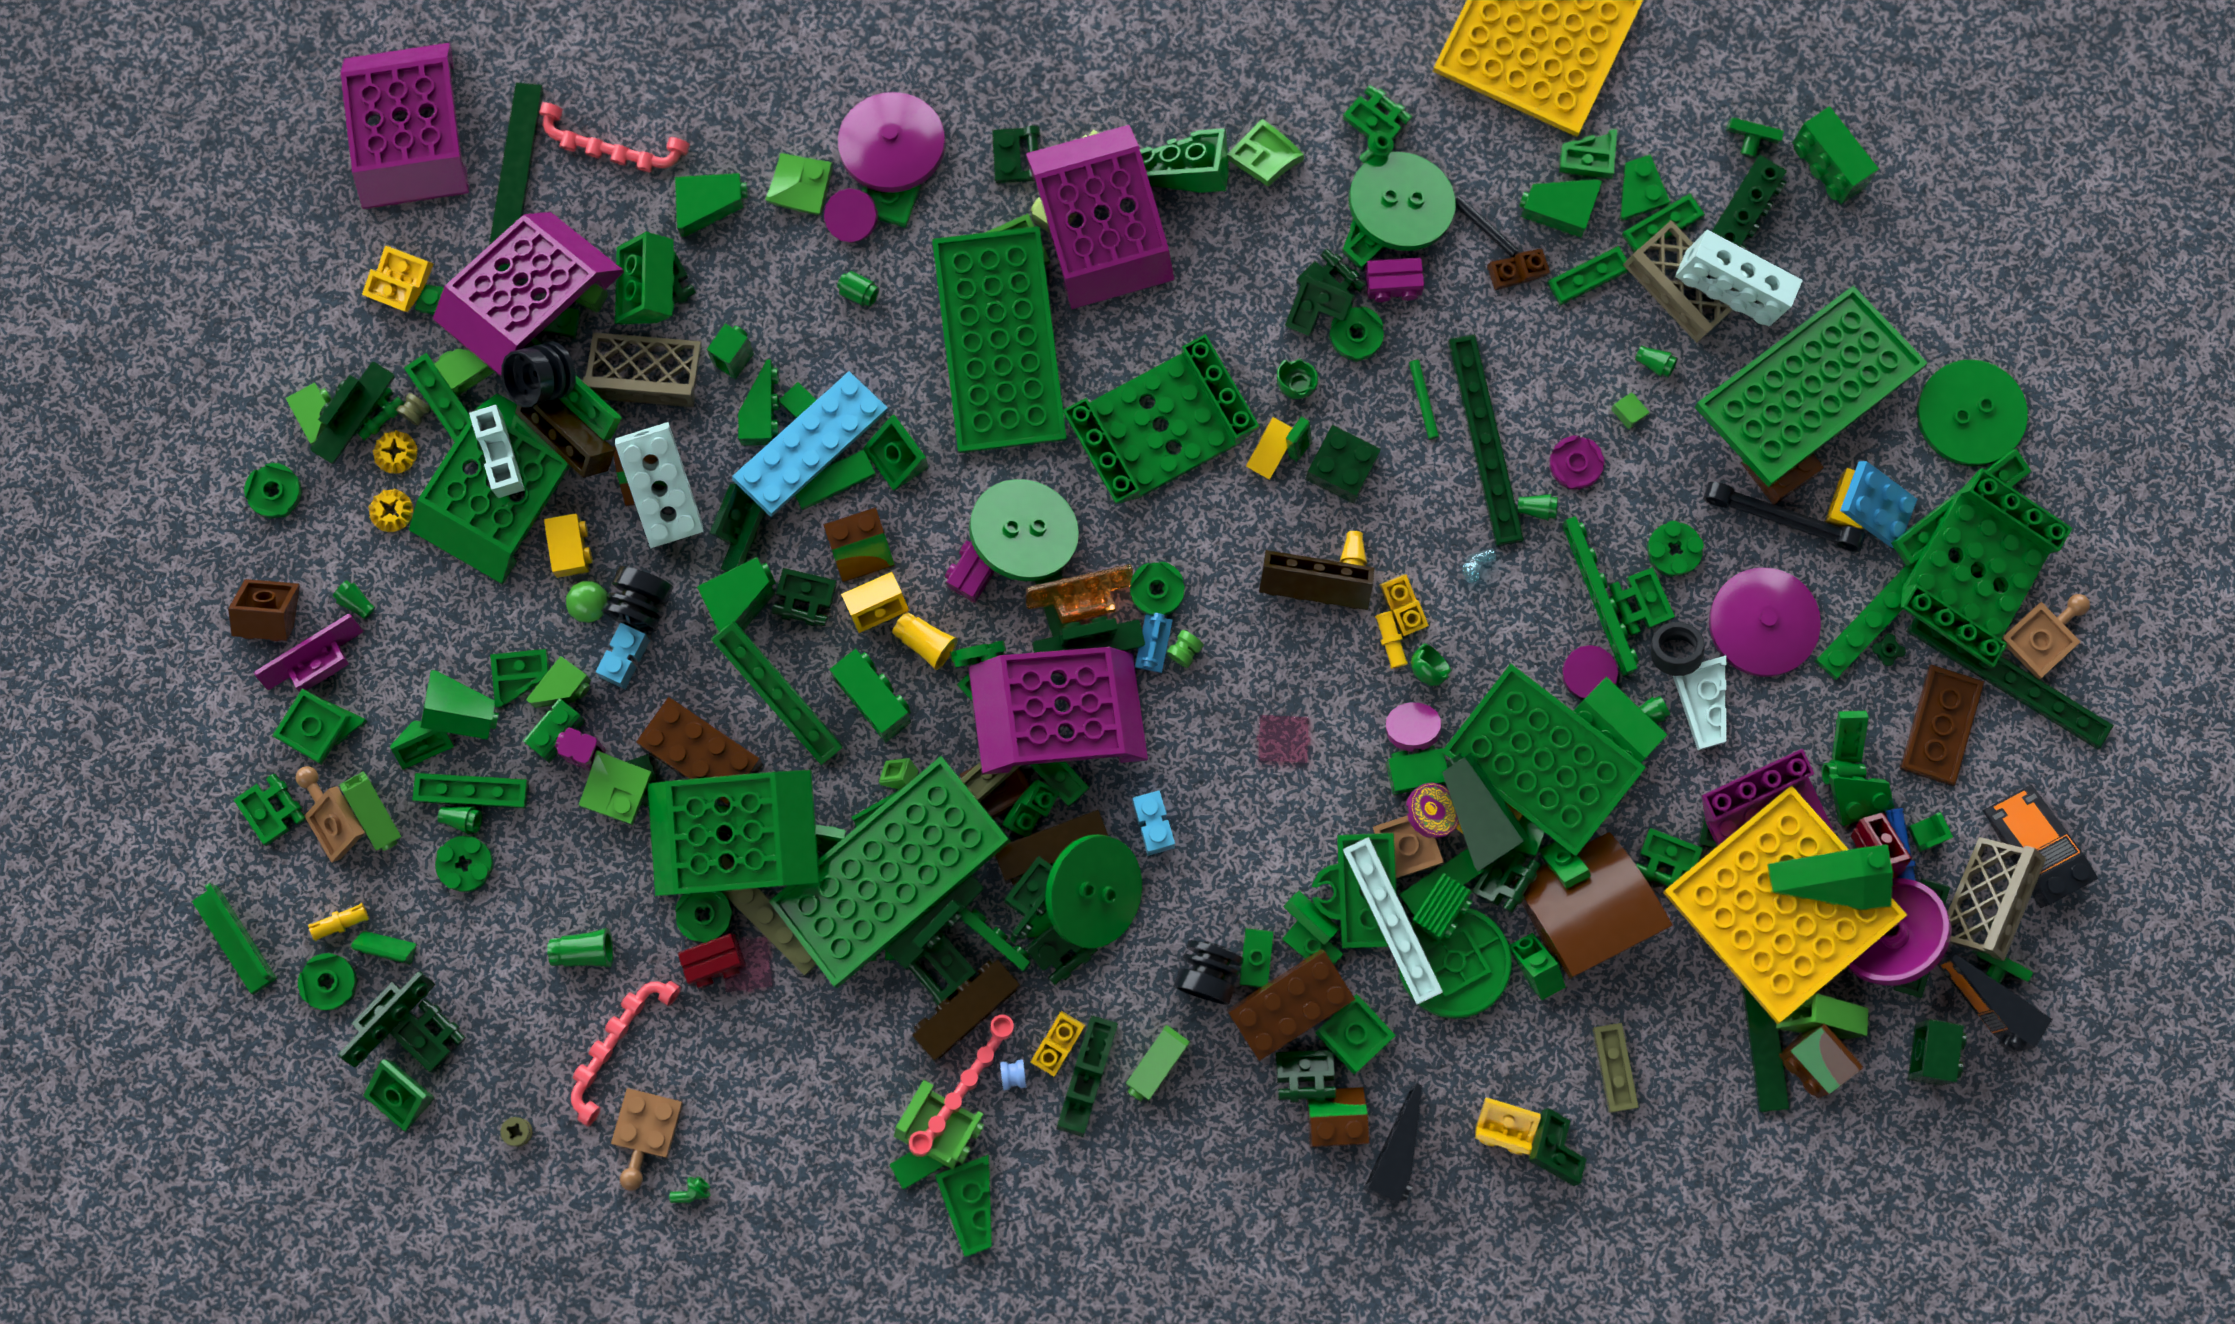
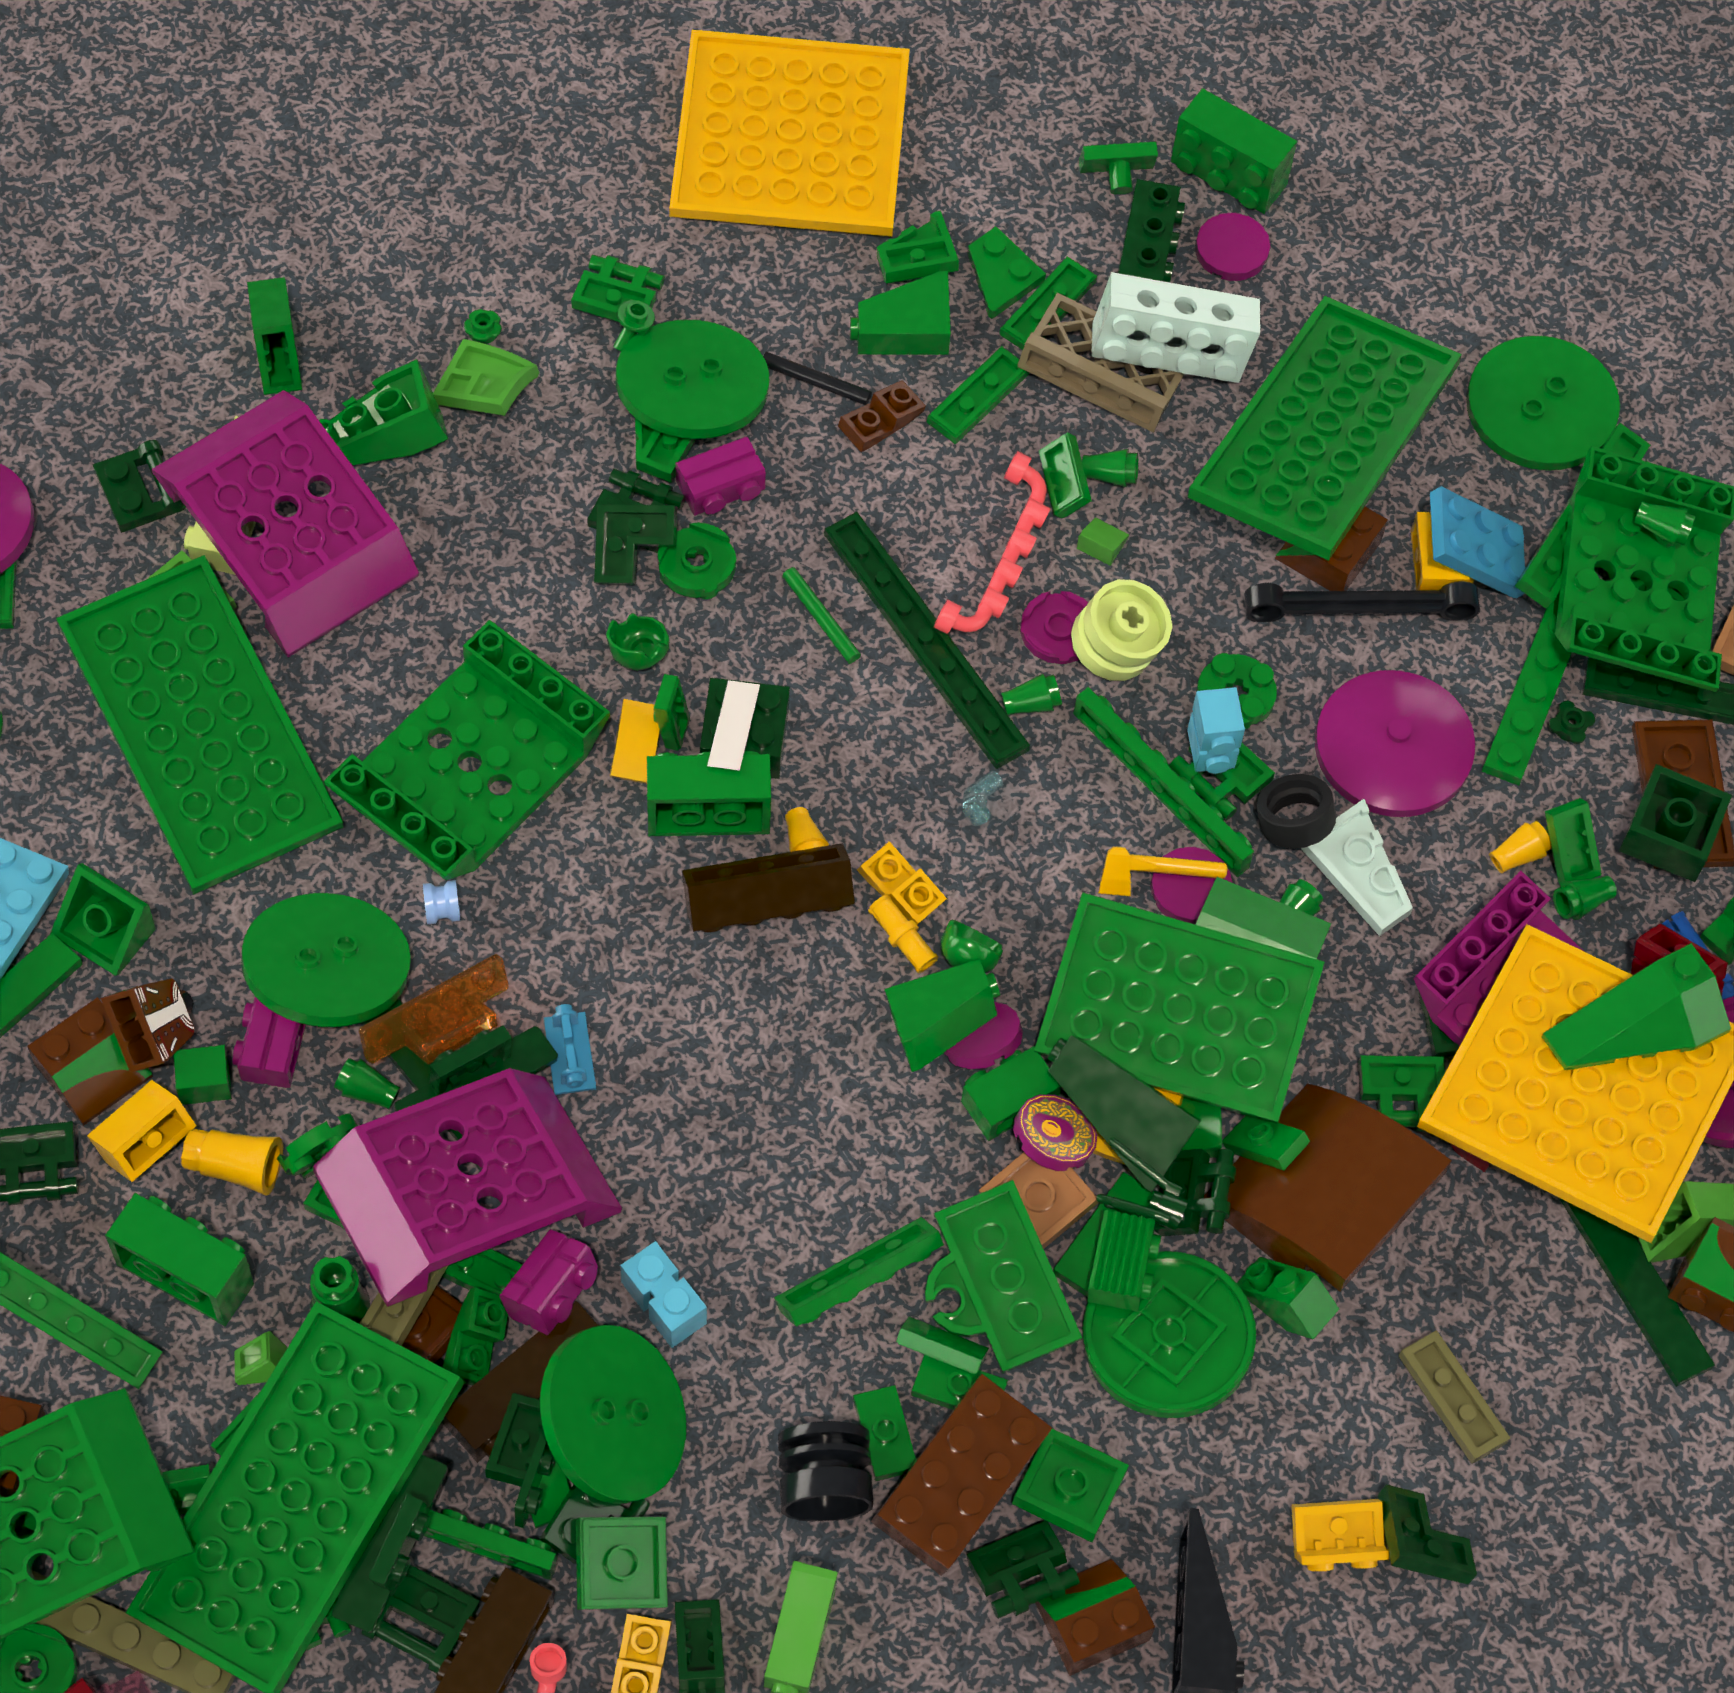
camera: 25 degrees left, 15 degrees down
(902, 535) = (150, 1022): none -> reddish brown torso
(924, 577) = (202, 1074): none -> green panel
(958, 761) = (339, 1288): none -> green plant
(1021, 619) = (365, 1084): none -> green cone
(1067, 981) = (621, 1563): none -> green tile
(1086, 793) = (549, 1282): none -> magenta brick
(1109, 515) = (441, 902): none -> light blue wheel
(1139, 75) = (274, 335): none -> green slope
(1154, 574) = (536, 958): green plate -> none
(1185, 648) = (617, 1042): bright green wheel -> none
(1278, 119) = (483, 334): none -> green plate
(1278, 852) = (857, 1272): none -> green plate
(1283, 738) = (804, 1118): clear pink piece -> none
(1301, 503) = (705, 800): none -> green brick
(1333, 466) = (733, 725): none -> white sticker
(1392, 920) = (1061, 1300): light aqua plate -> none
(1393, 703) = (941, 1010): none -> green slope
(1481, 885) = (1164, 1207): none -> dark green plant
(1548, 642) = (1119, 862): none -> yellow piece
(1557, 411) = (1007, 570): none -> coral bar
(1614, 483) = (1121, 630): none -> yellowish green wheel
(1622, 356) = (1064, 475): none -> green plate
(1644, 579) = (1215, 730): none -> medium azure piece
(1807, 223) = (1232, 246): none -> magenta tile
(1816, 725) = (1522, 847): none -> yellow cone
(1859, 797) = (1619, 918): green wing -> none
(1923, 749) = (1675, 823): none -> dark green brick
(2011, 537) = (1666, 522): none -> green cone

